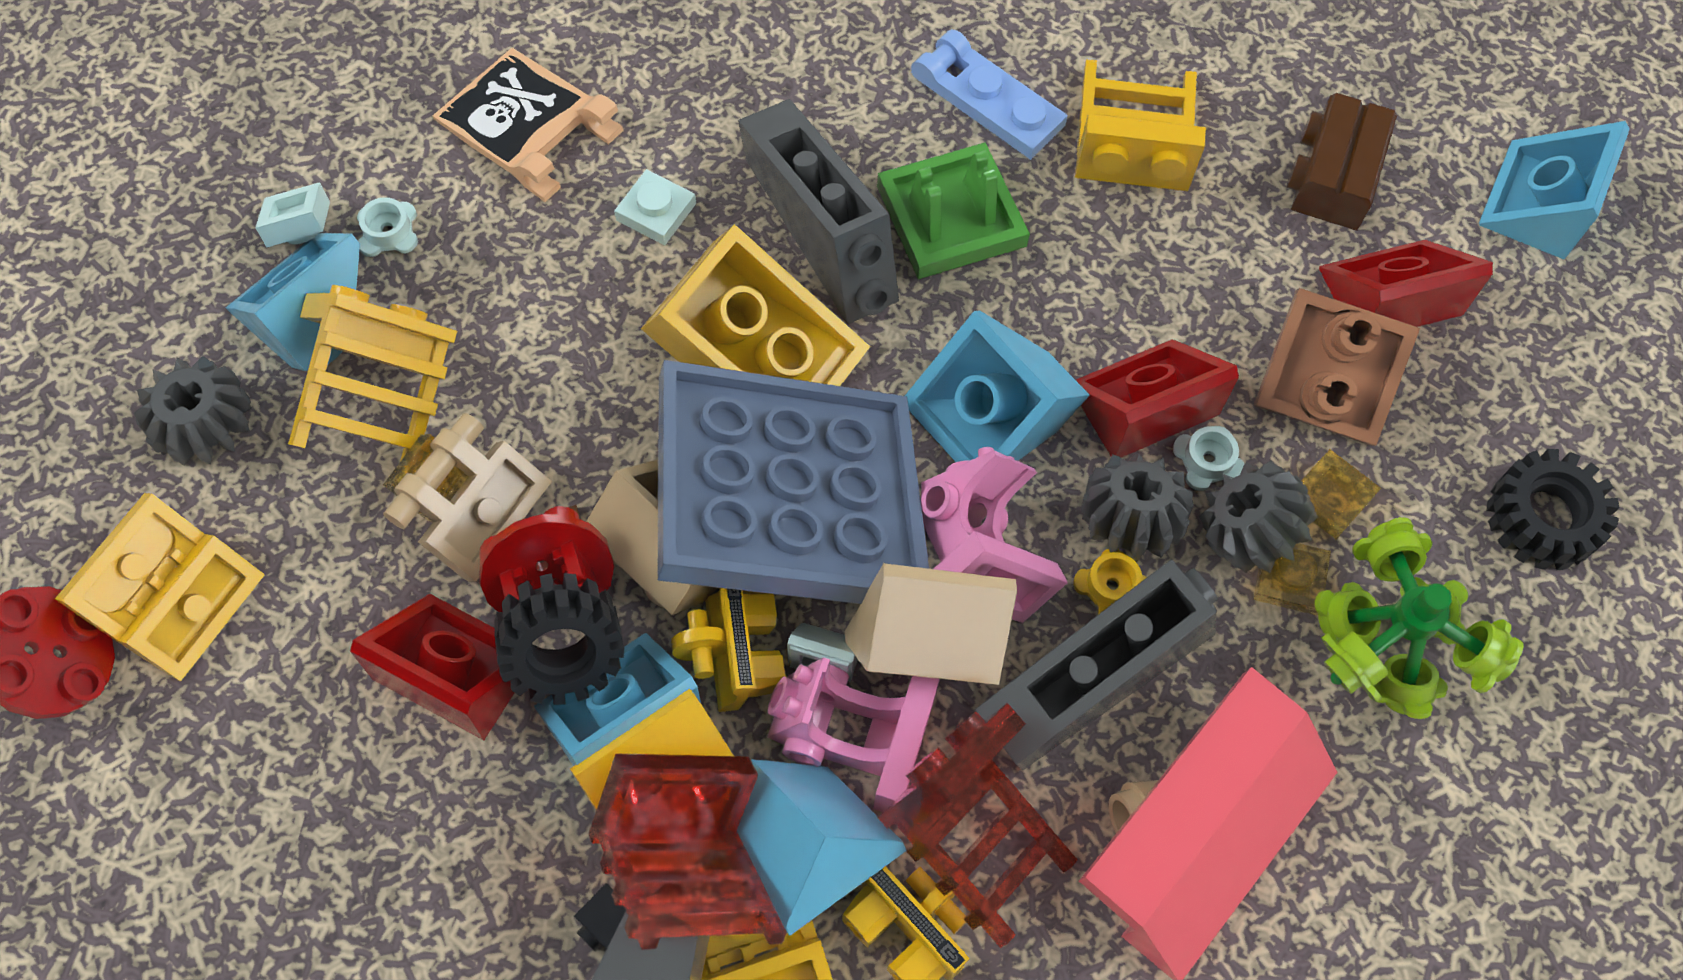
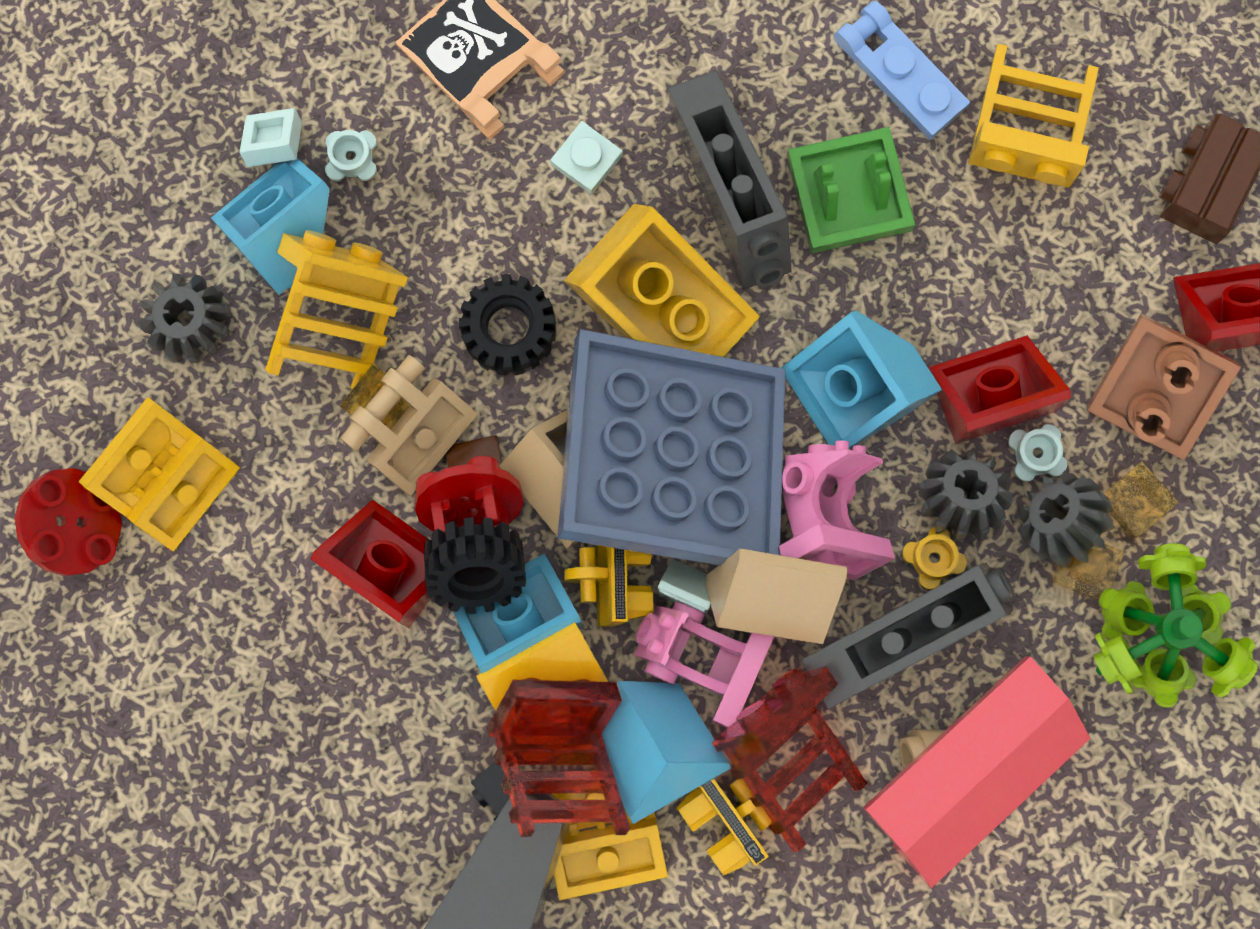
camera: 15 degrees right, 15 degrees up
(574, 350) = (503, 295): none -> black tyre

